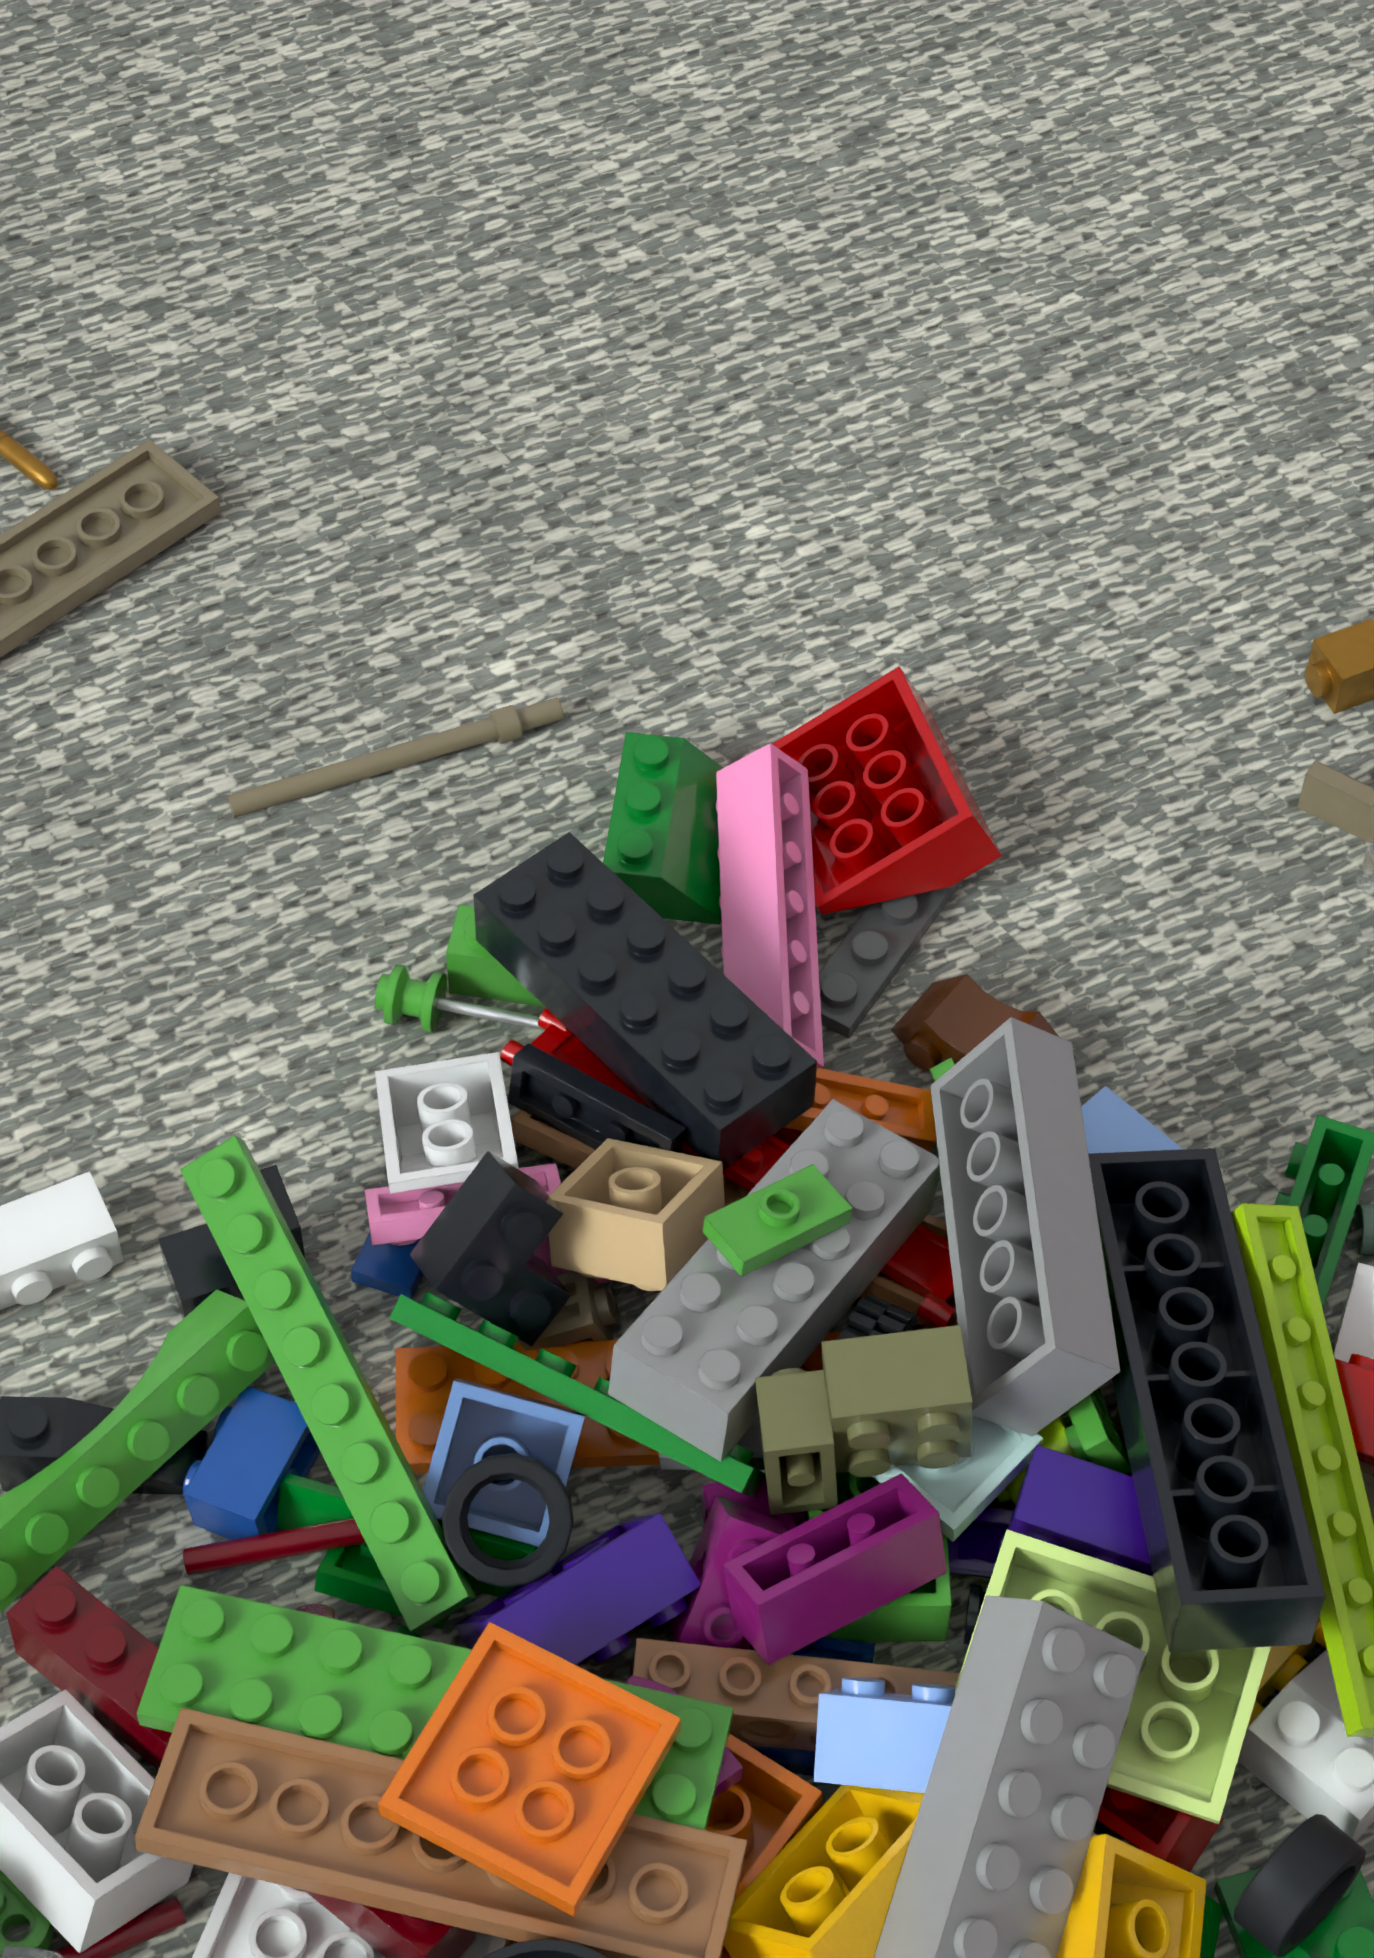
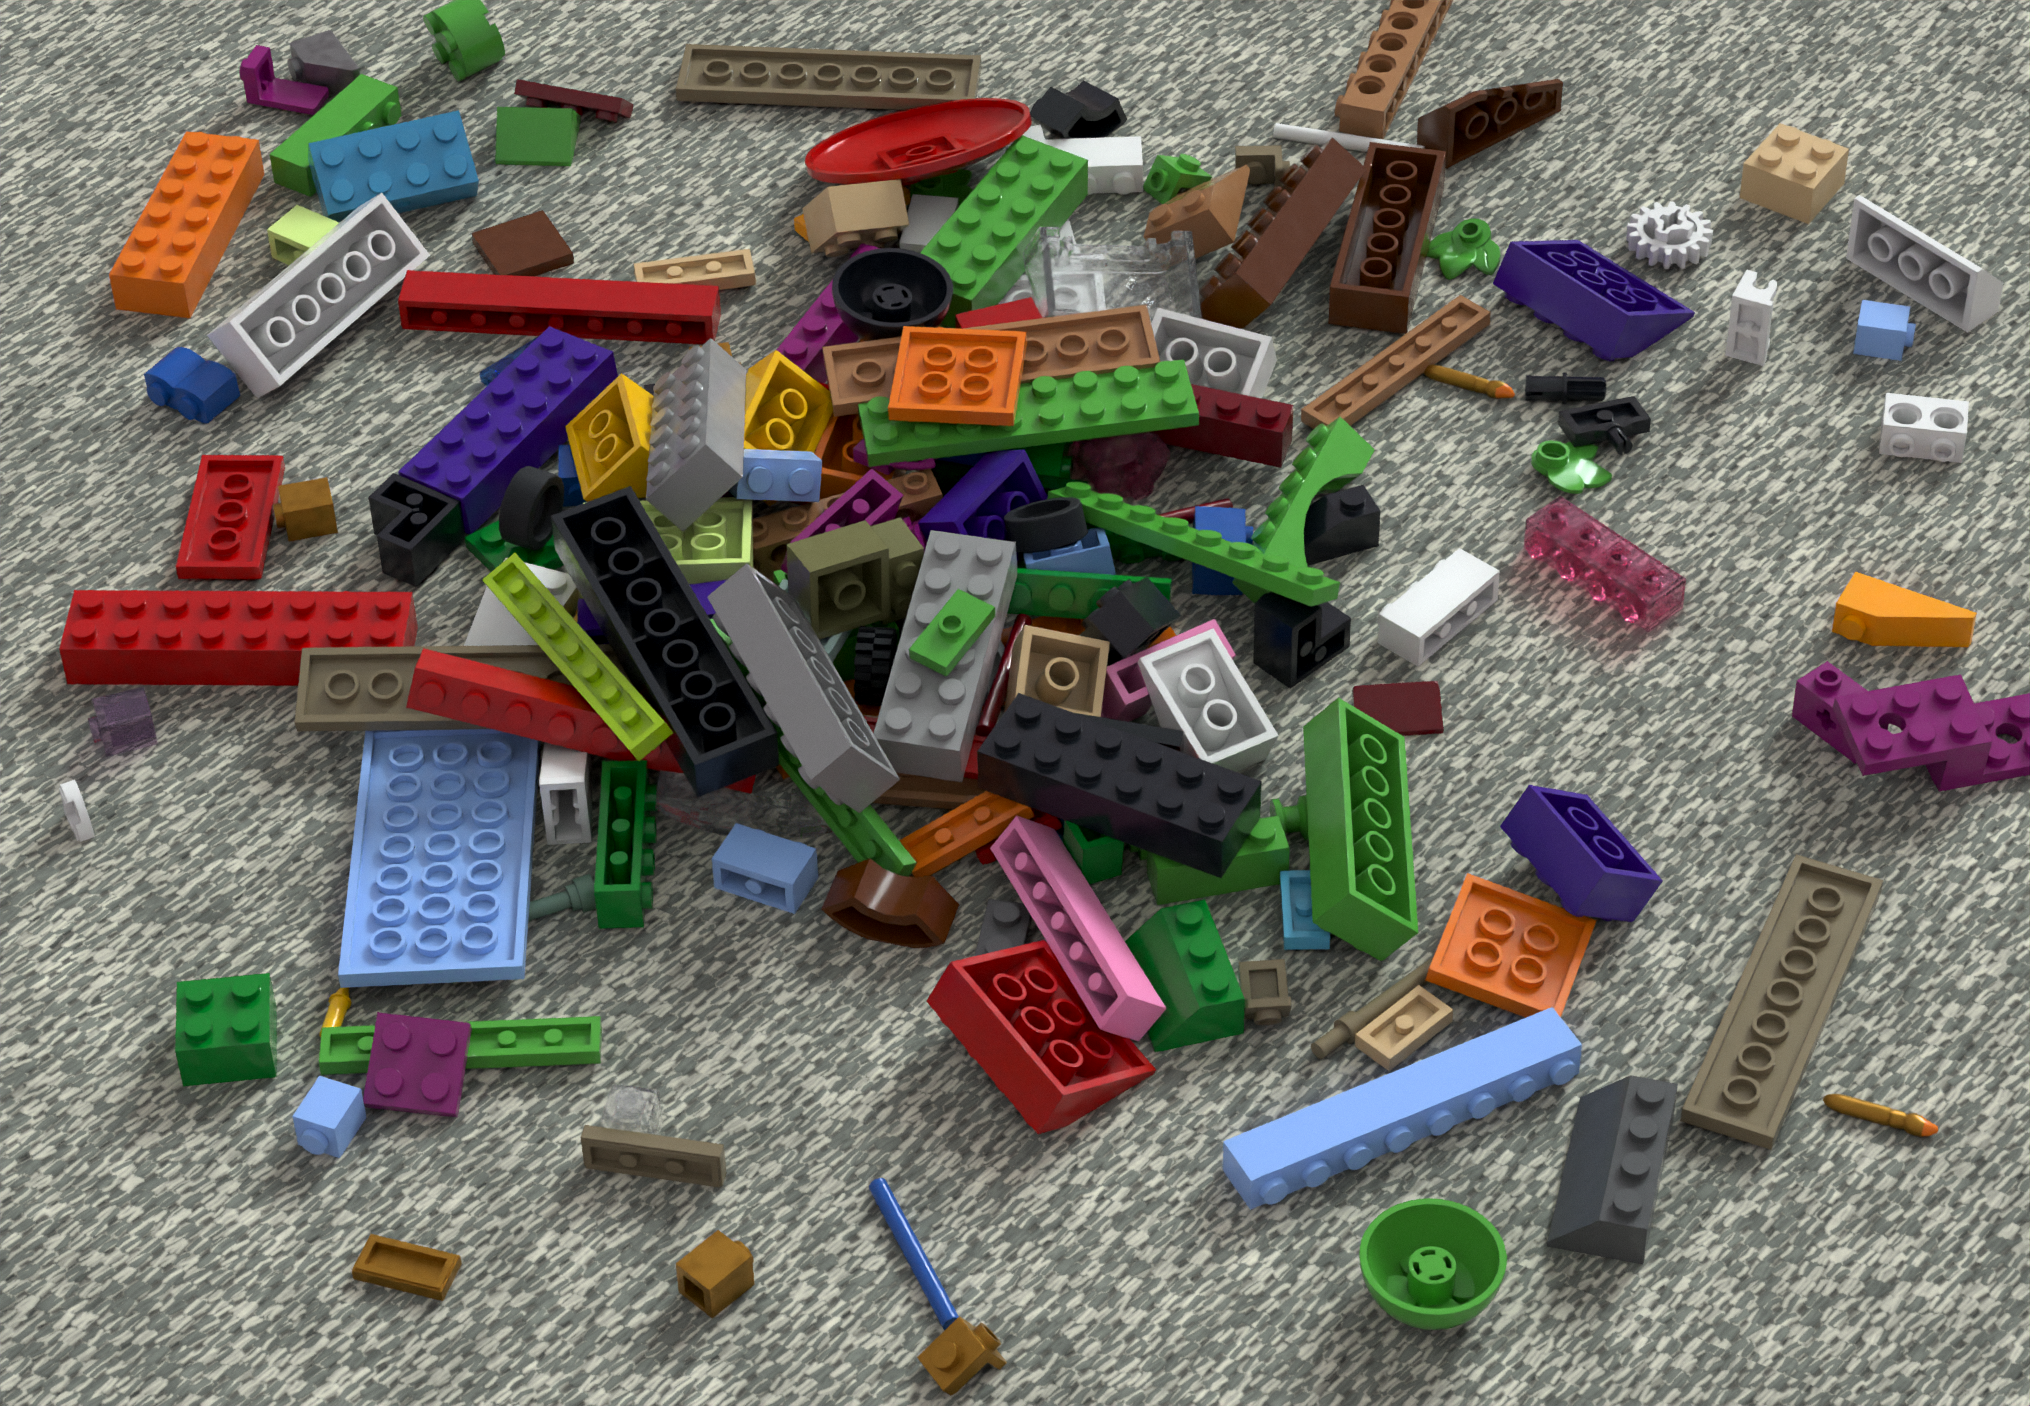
camera: 160 degrees right, 10 degrees down
(117, 783) = (1580, 854): none -> dark purple brick
(172, 1122) = (1403, 707): none -> dark red slope
(271, 730) = (1510, 949): none -> orange plate
(330, 466) = (1614, 1169): none -> dark grey slope
(354, 911) = (1359, 830): none -> bright green brick
(448, 695) = (1403, 1028): none -> tan plate
(474, 861) = (1296, 911): none -> medium azure plate
(509, 600) = (1401, 1108): none -> light blue brick
(586, 777) = (1264, 991): none -> dark tan bracket
(596, 396) = (1432, 1263): none -> bright green piece
(1111, 505) = (960, 1354): none -> pearl gold bracket
(1119, 642) = (913, 1252): none -> blue bar

